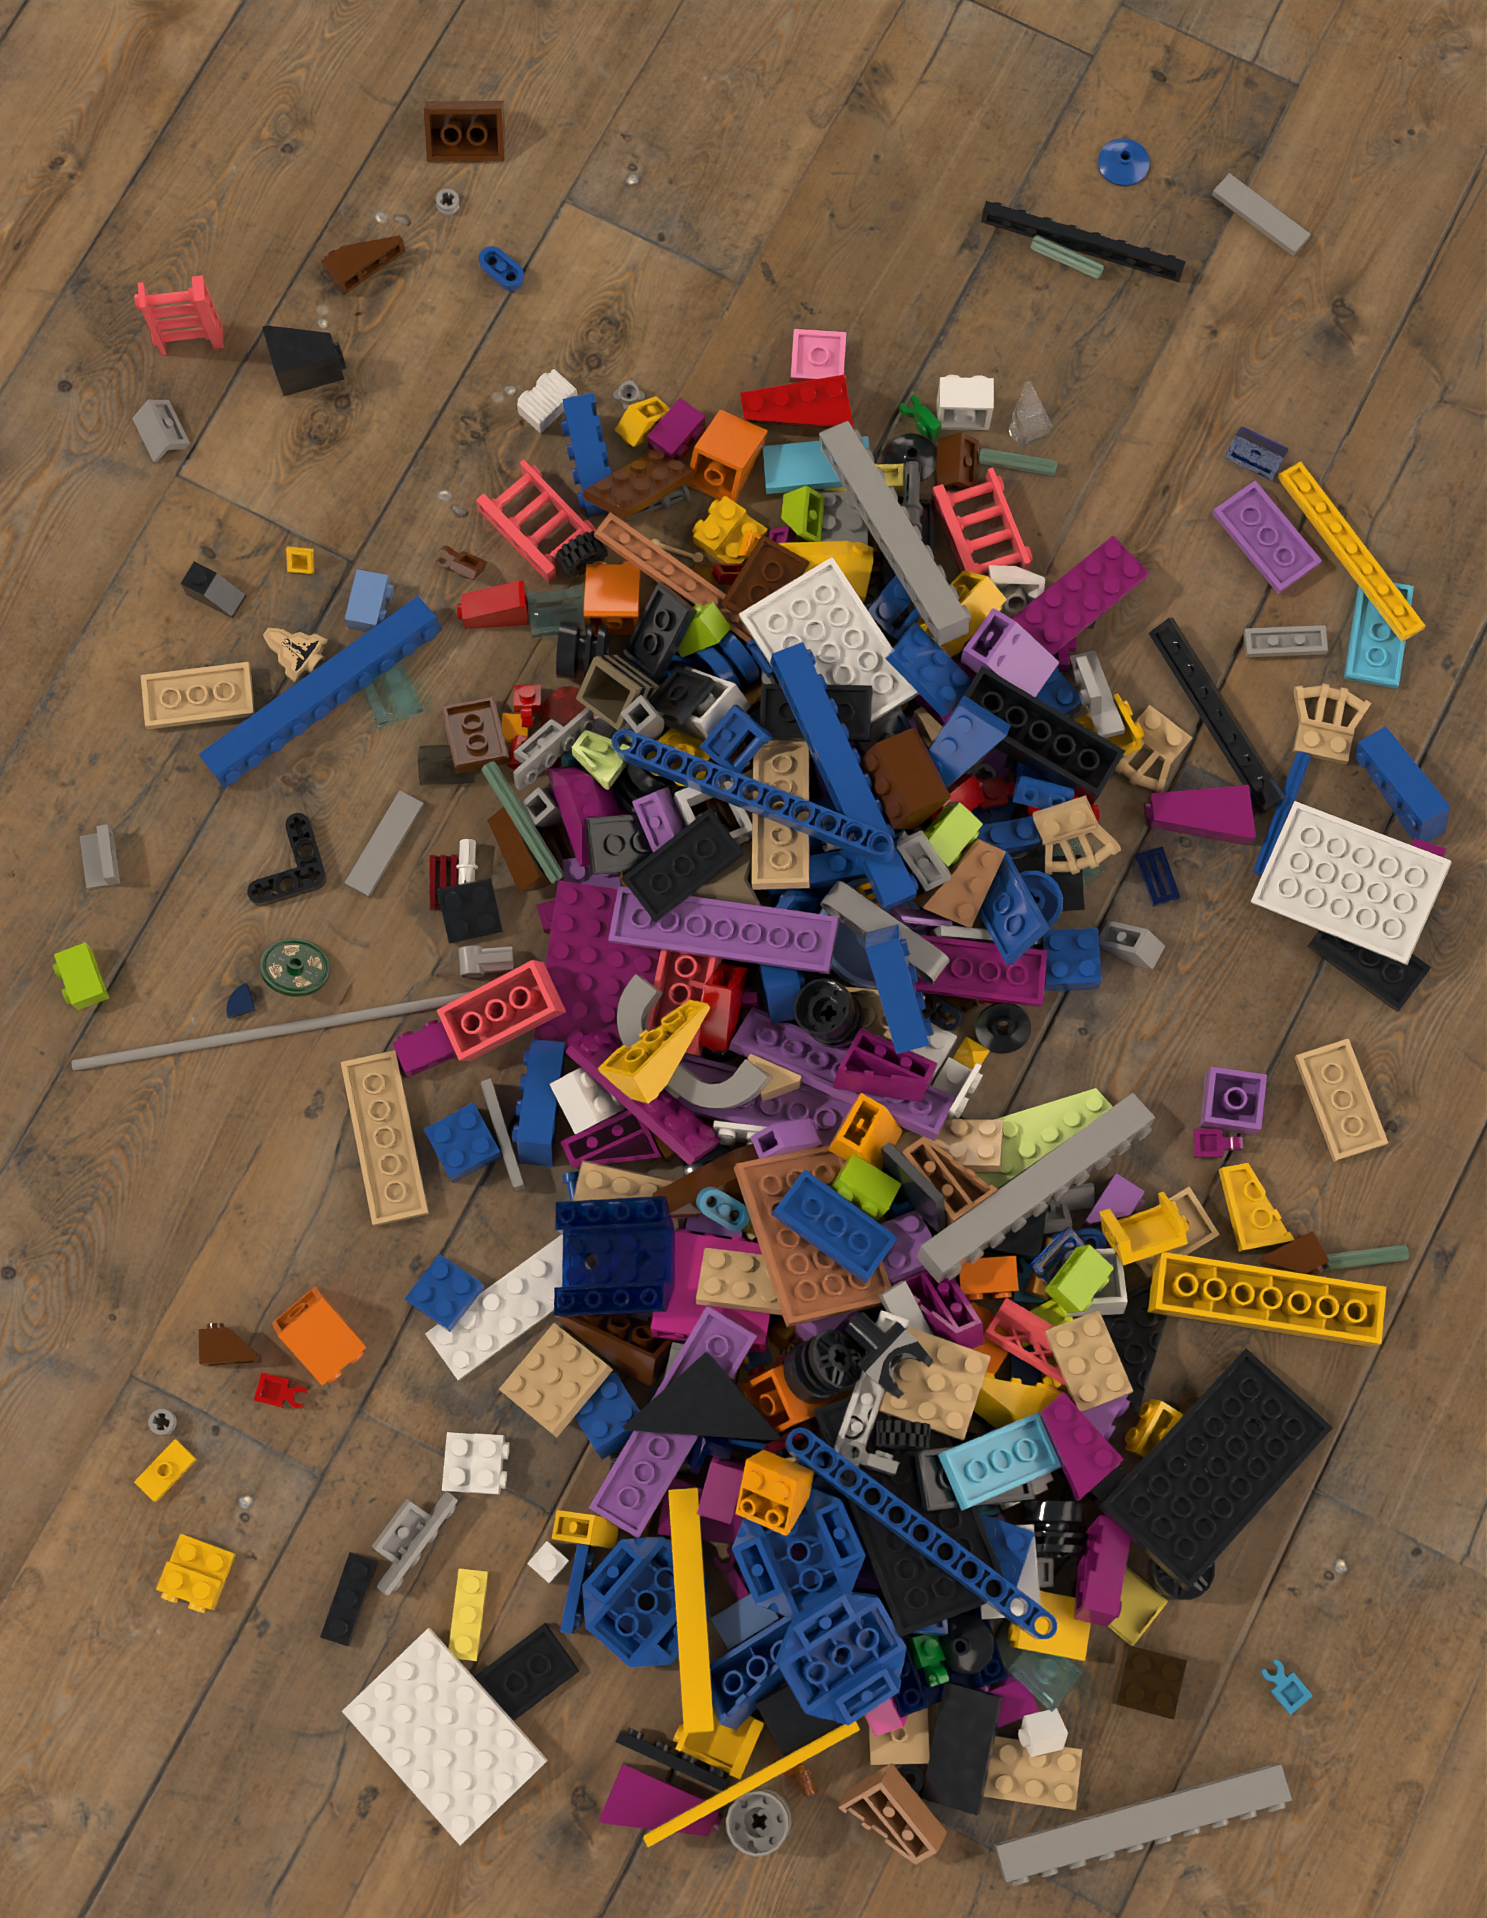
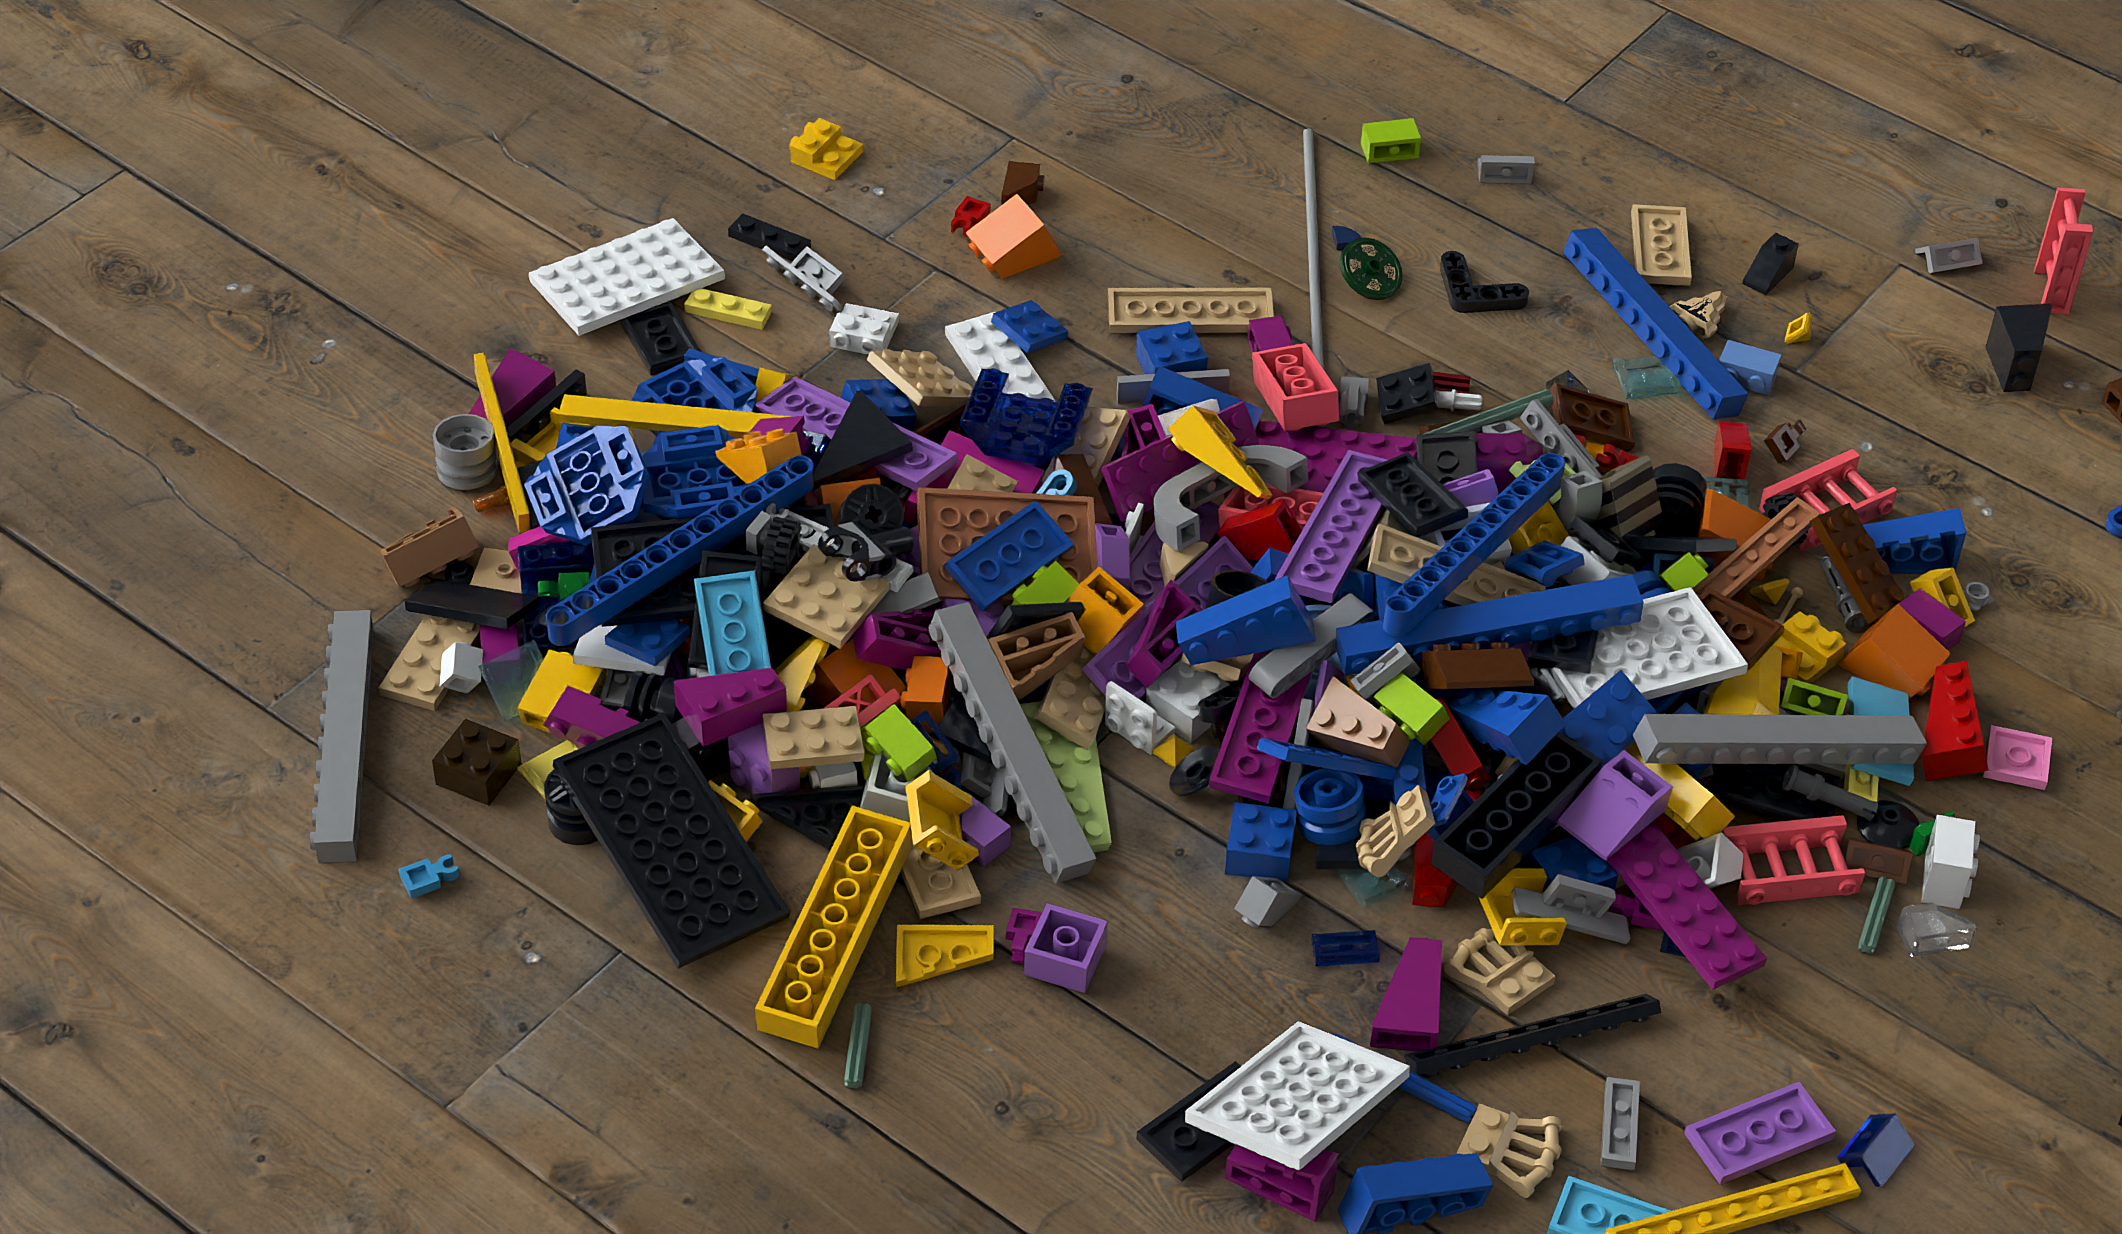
camera: 100 degrees right, 30 degrees down
(165, 1470) = (922, 145): yellow plate -> none
(169, 1416) = (965, 147): light grey bush -> none
(384, 844) = (1489, 351): light grey tile -> none
(545, 402) = (1982, 531): white brick -> none
(548, 1562) = (755, 352): white brick -> none
(1298, 1256) = (876, 977): reddish brown slope -> none
(1341, 1100) = (1044, 1057): tan plate -> none

